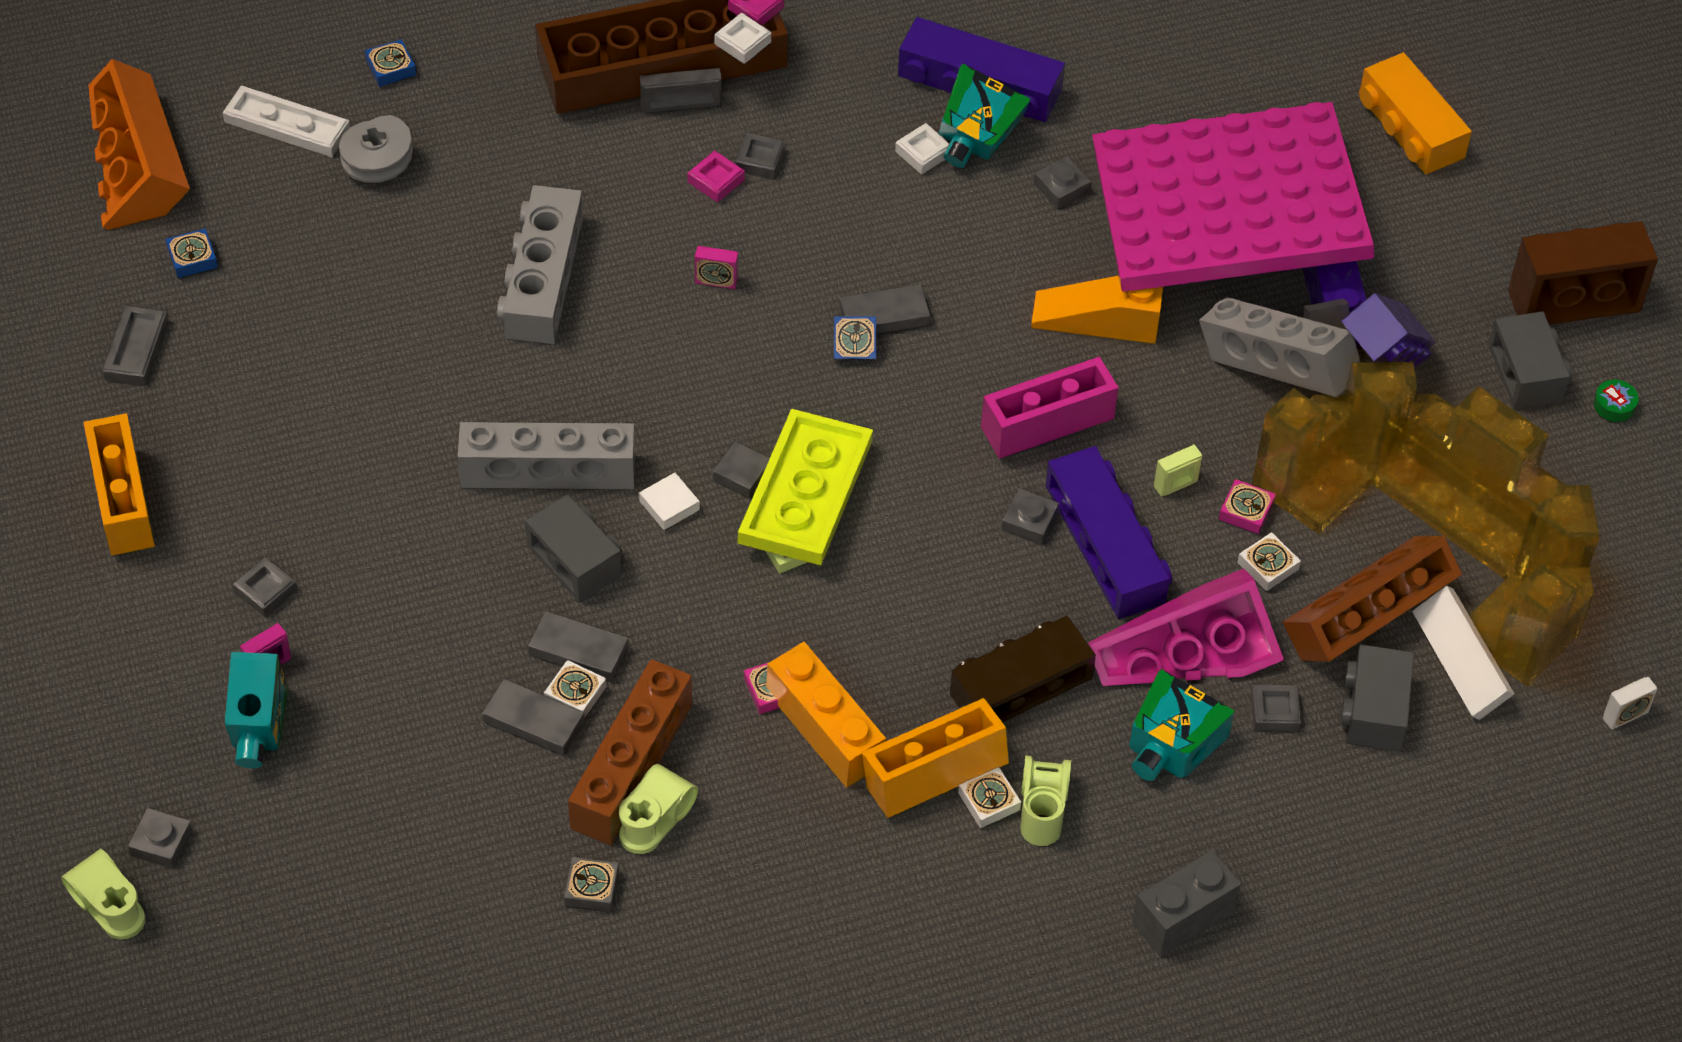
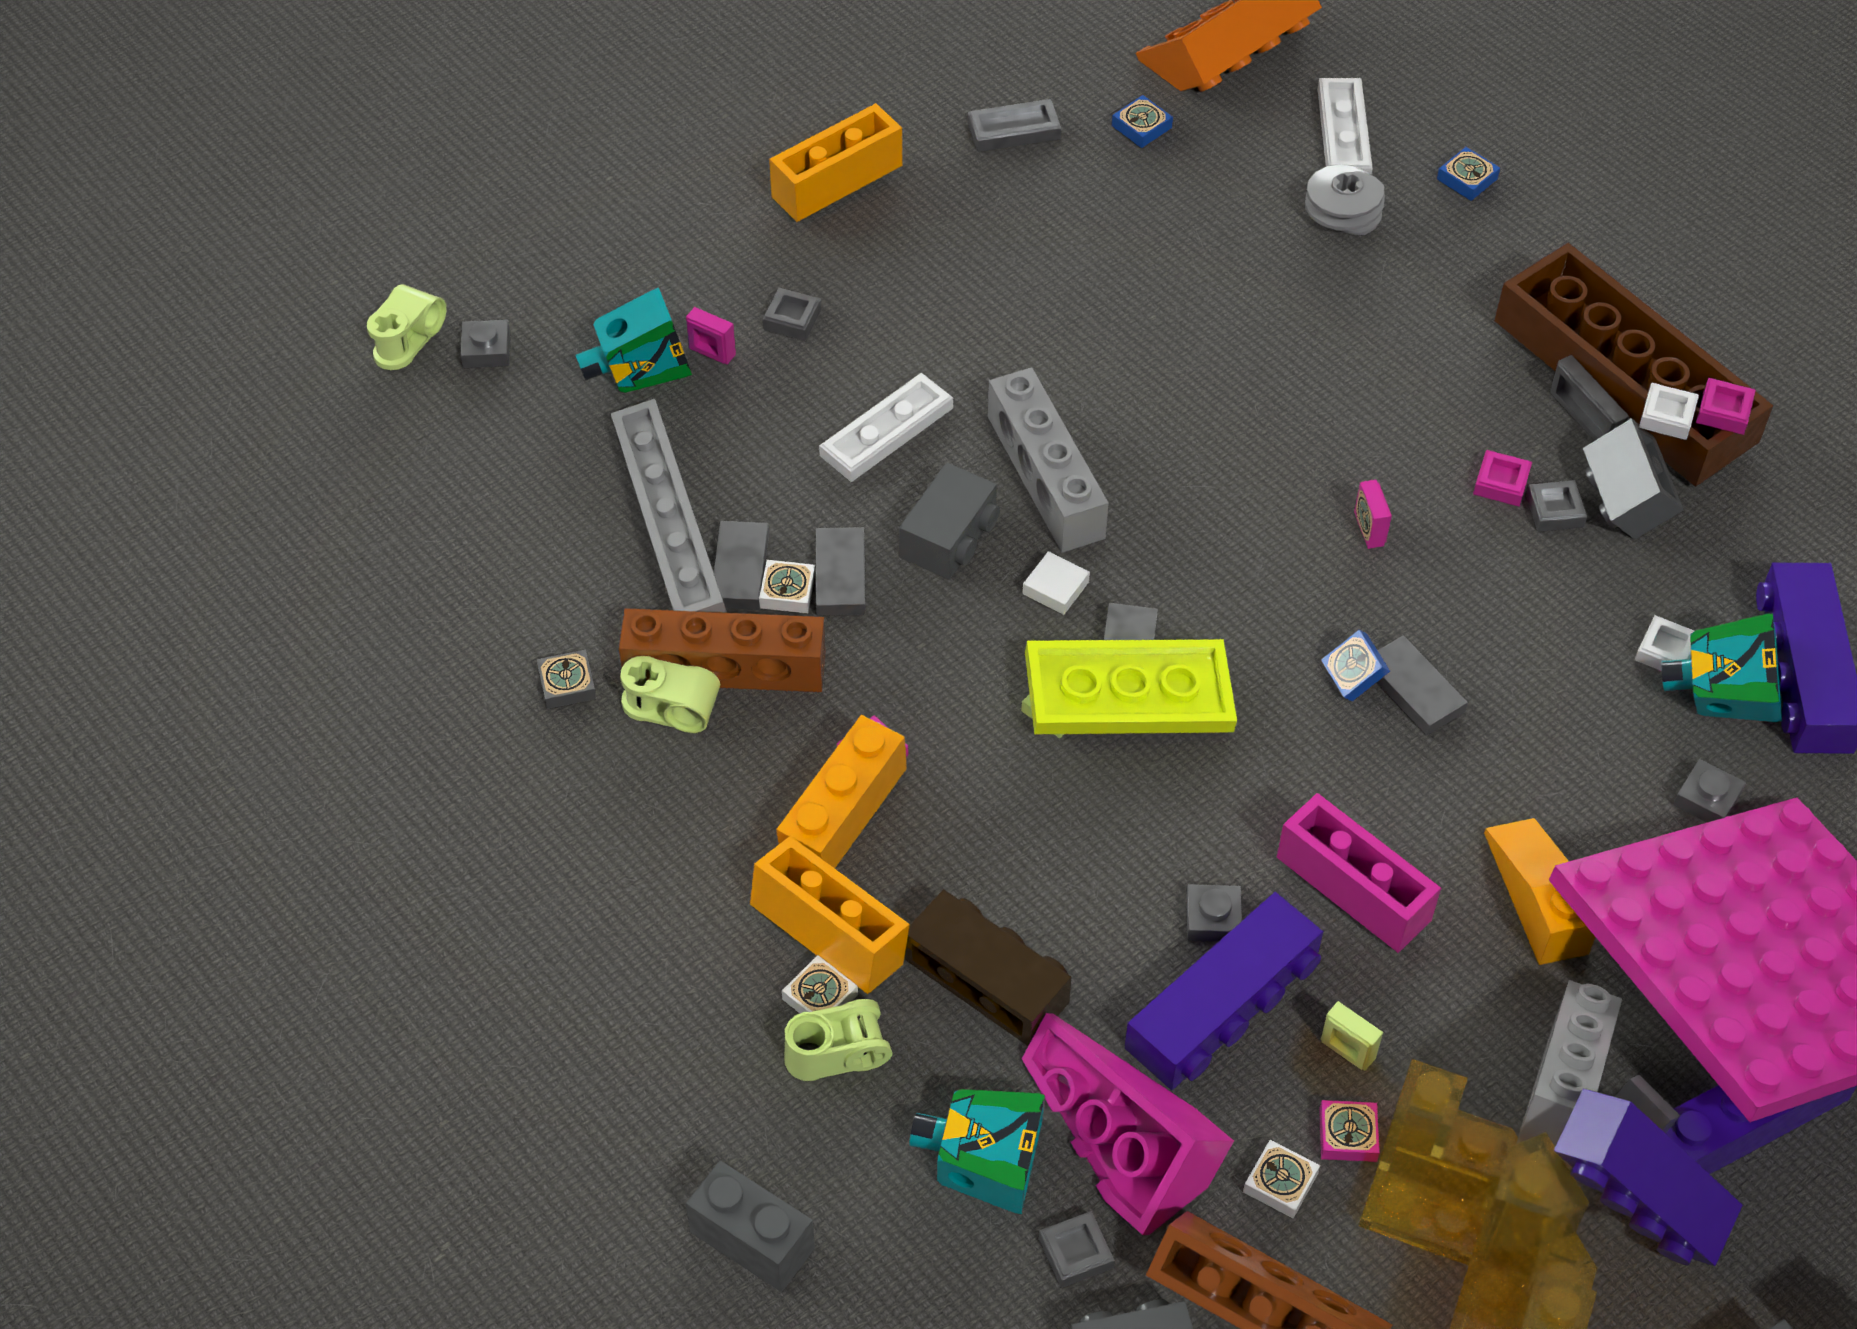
camera: 70 degrees right, 0 degrees up
(436, 561) = (886, 427): none -> white tile
(455, 745) = (667, 509): none -> light grey plate
(541, 265) = (1286, 373): light grey brick -> none
(774, 95) = (1631, 479): none -> brick

